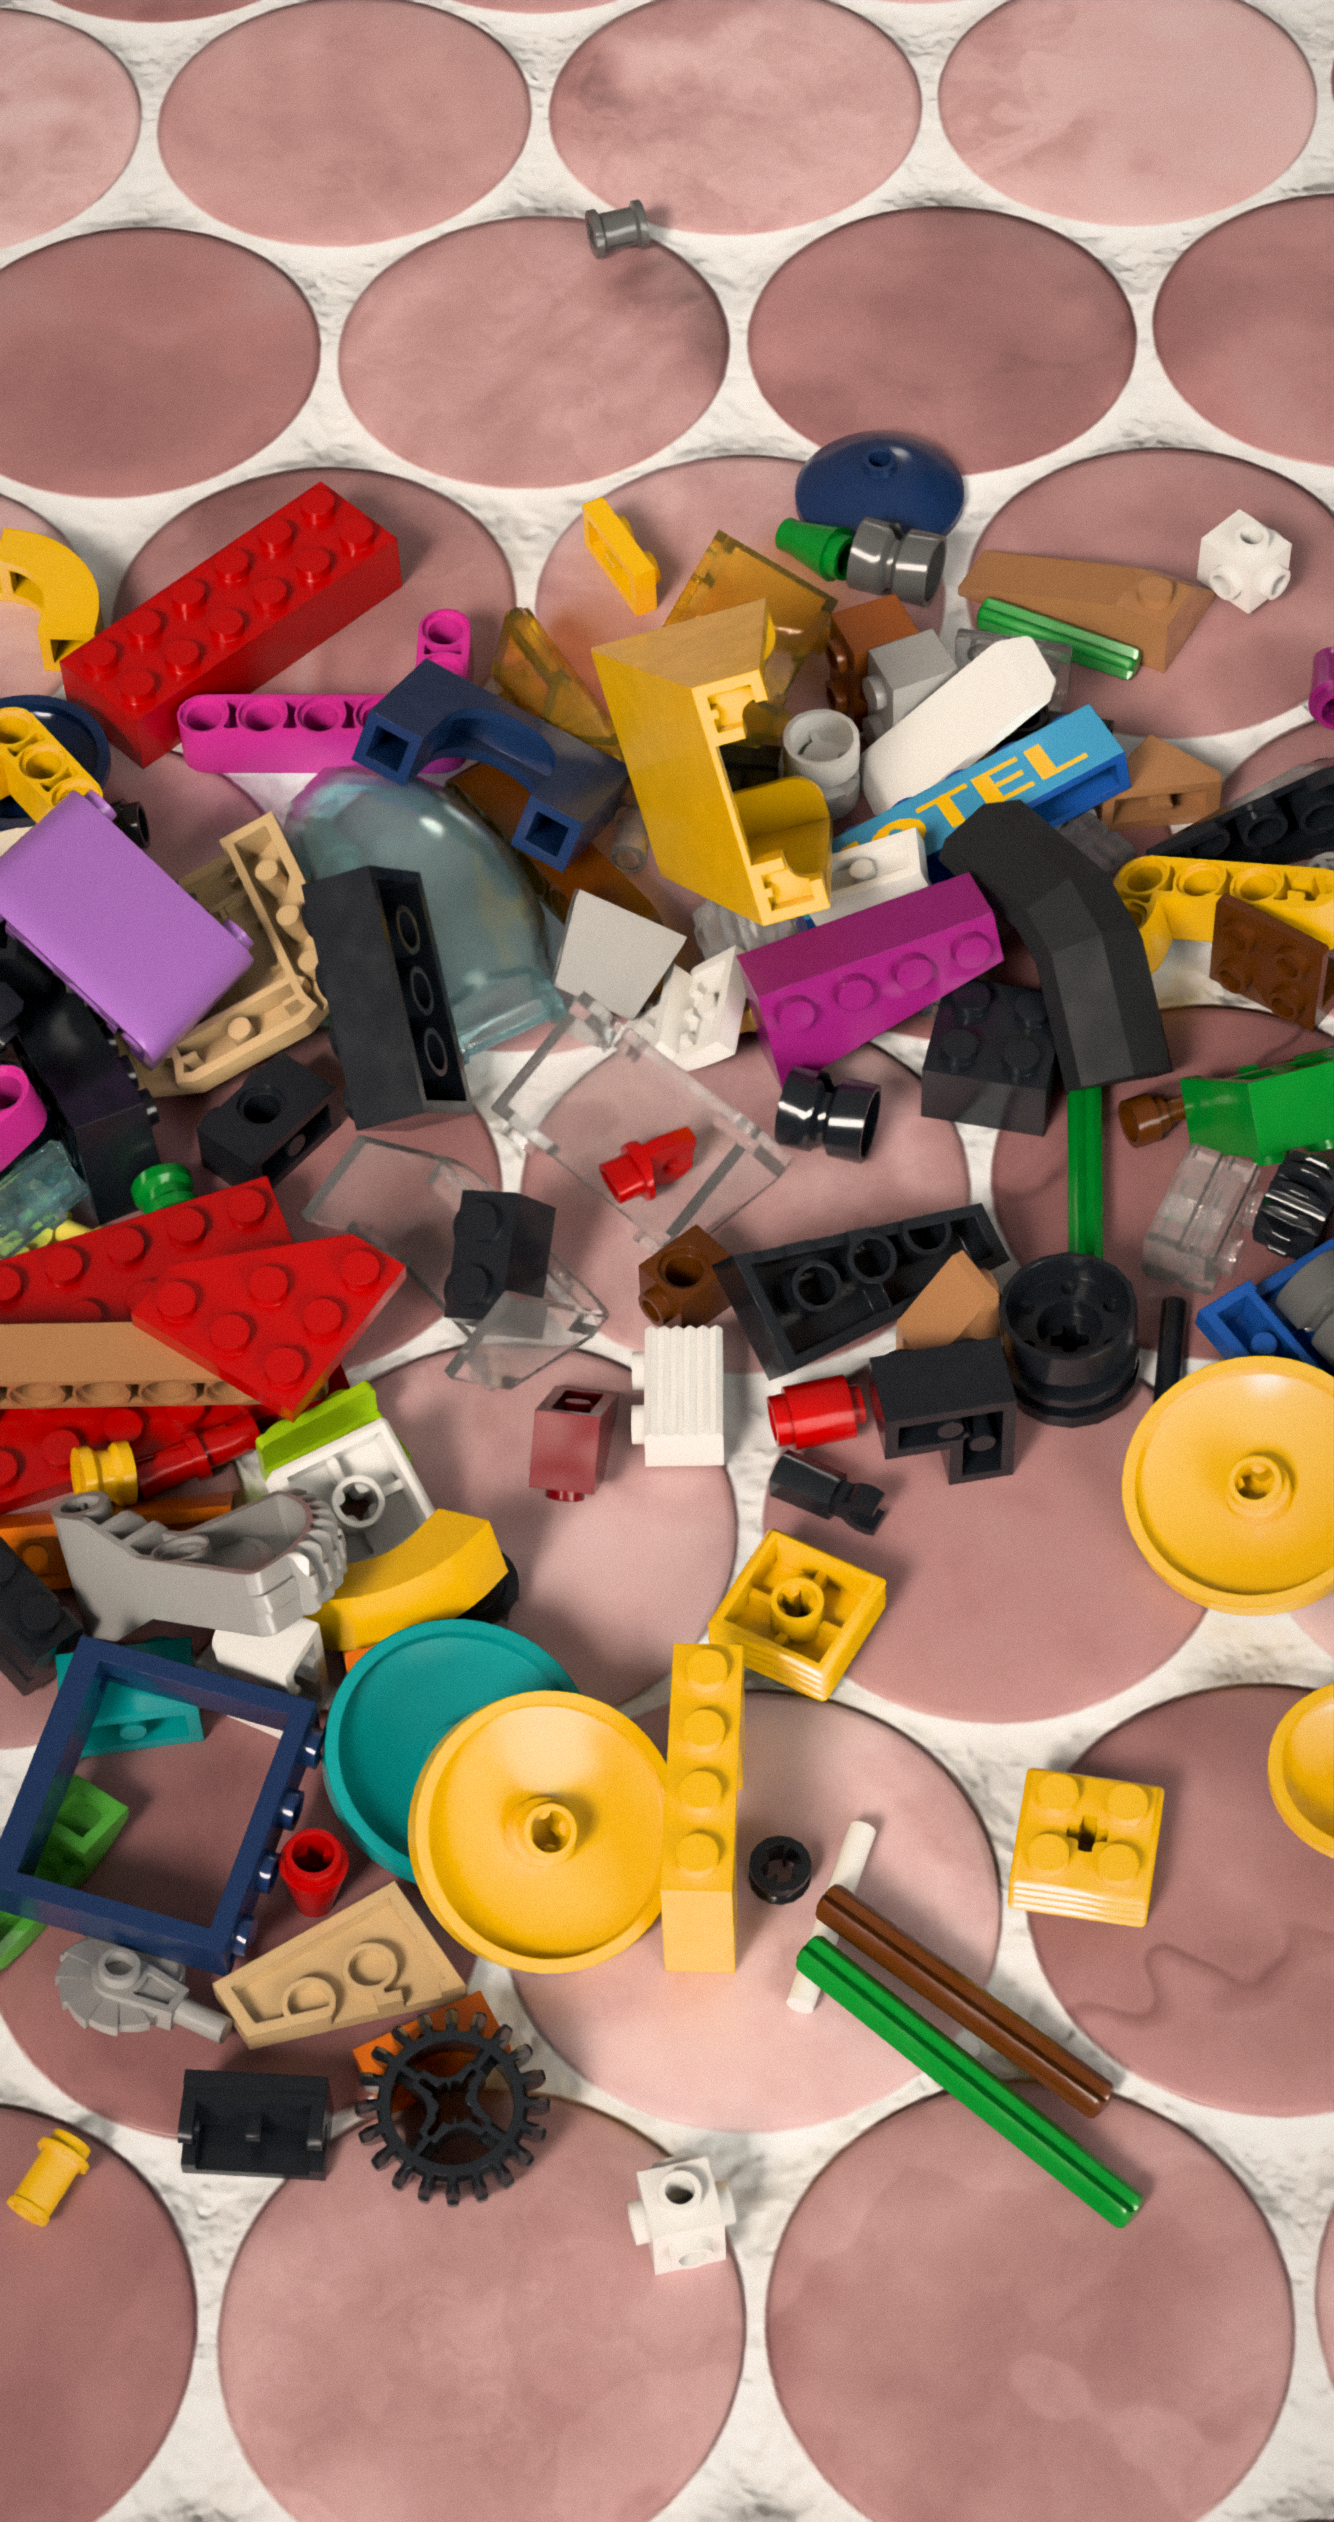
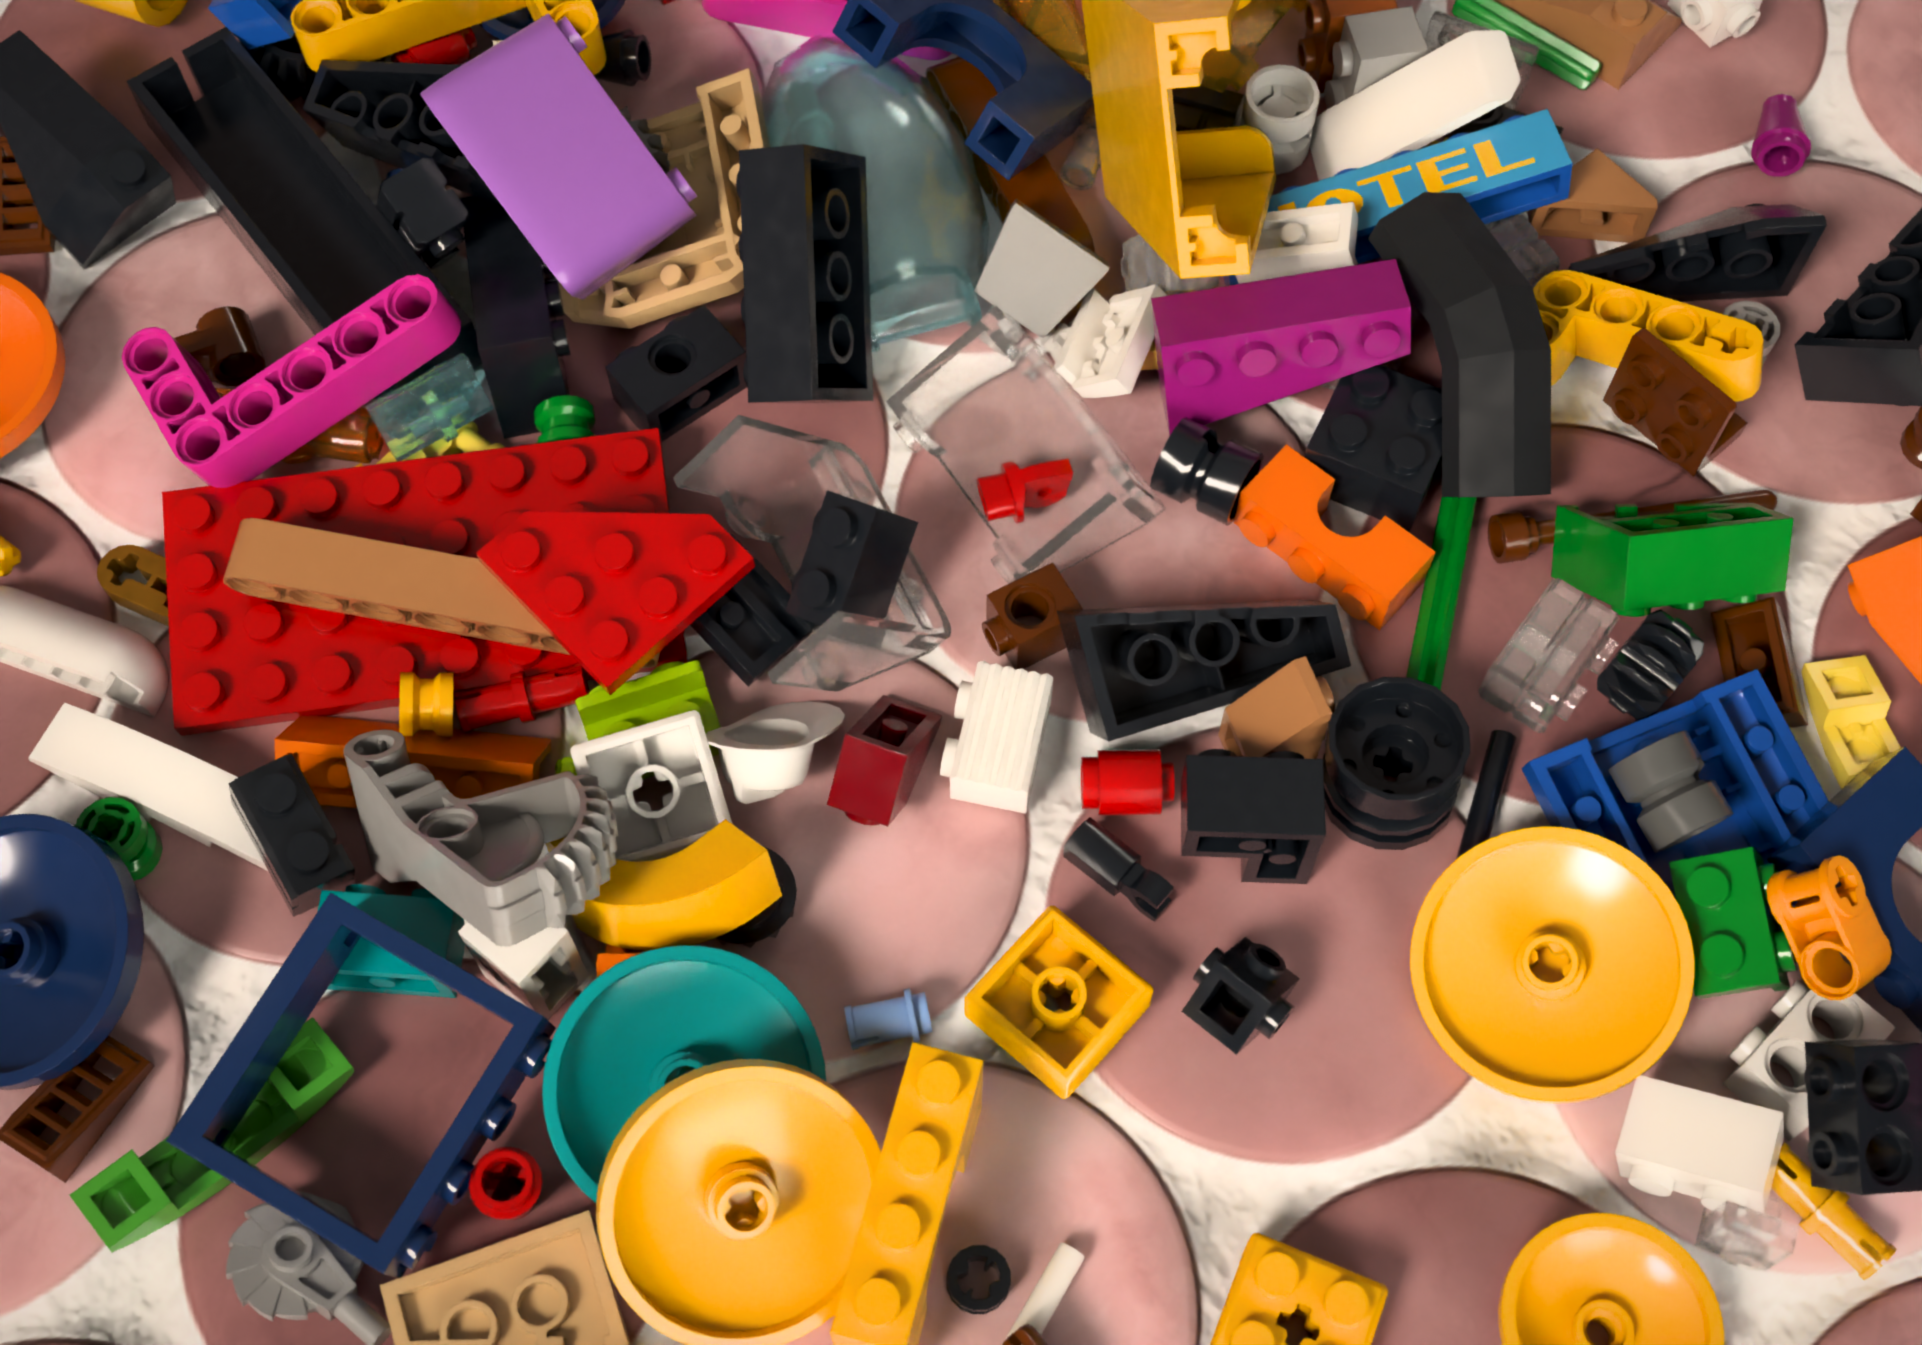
camera: 10 degrees right, 10 degrees up
(410, 1343) = (751, 624): none -> black plate
(461, 1451) = (773, 747): none -> white piece
(635, 1667) = (888, 1020): none -> light blue pin
(951, 1573) = (1241, 994): none -> black brick
(1011, 1176) = (1365, 572): none -> orange arch

